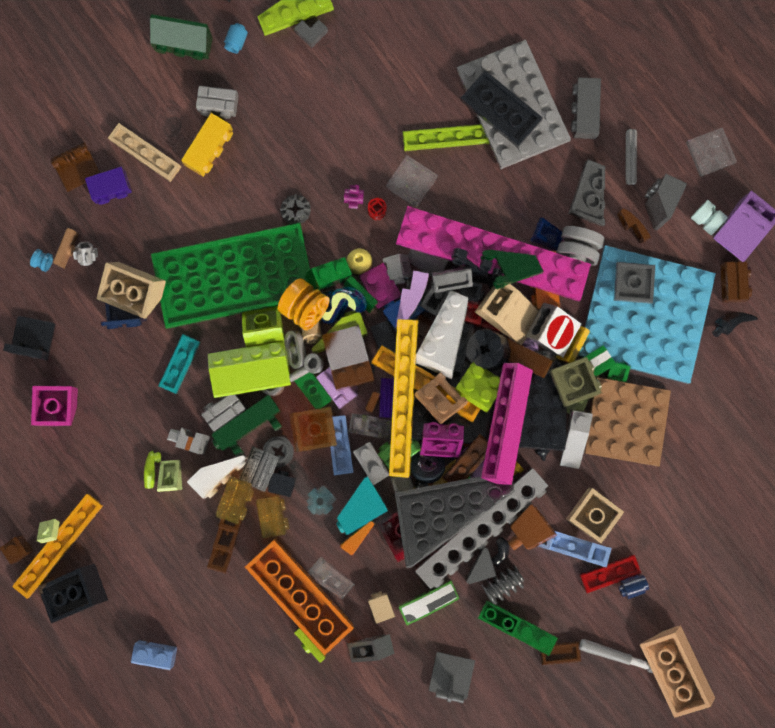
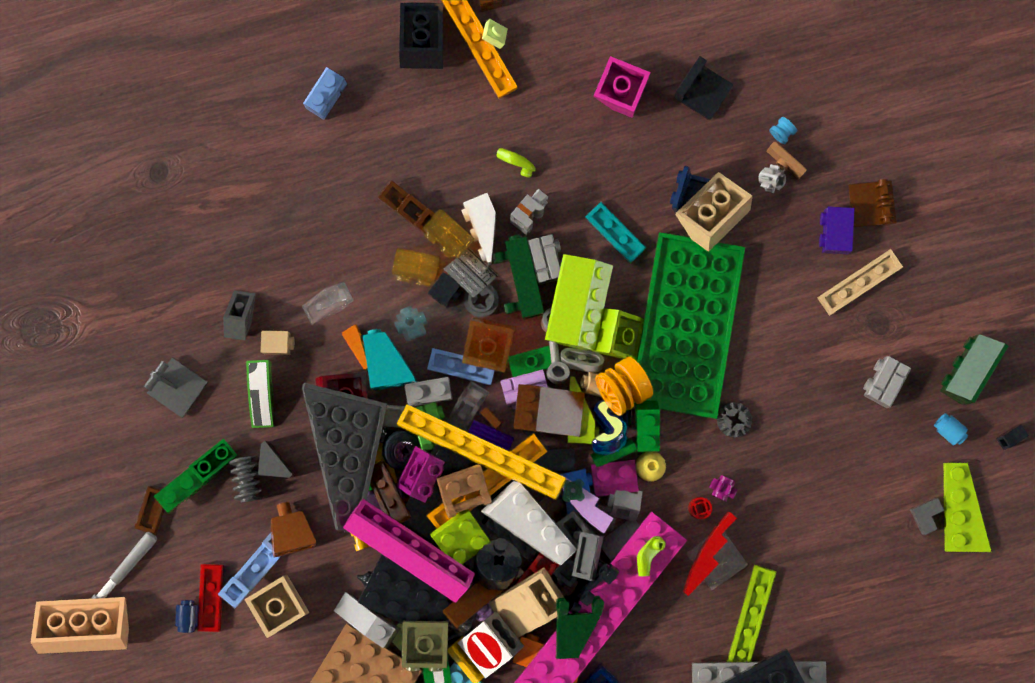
camera: 120 degrees right, 0 degrees up
(169, 476) = (500, 177): yellowish green slope -> none
(207, 145) = (841, 353): yellow brick -> none
(300, 596) = (321, 263): orange brick -> none
(309, 646) = (269, 254): lime plate -> none
(405, 305) = (577, 495): none -> clear green plate
(418, 188) = (704, 562): none -> red slope
(425, 569) = (281, 410): light grey brick -> none
(431, 232) = (647, 553): none -> lime arm
(503, 551) = (280, 493): black arm -> none

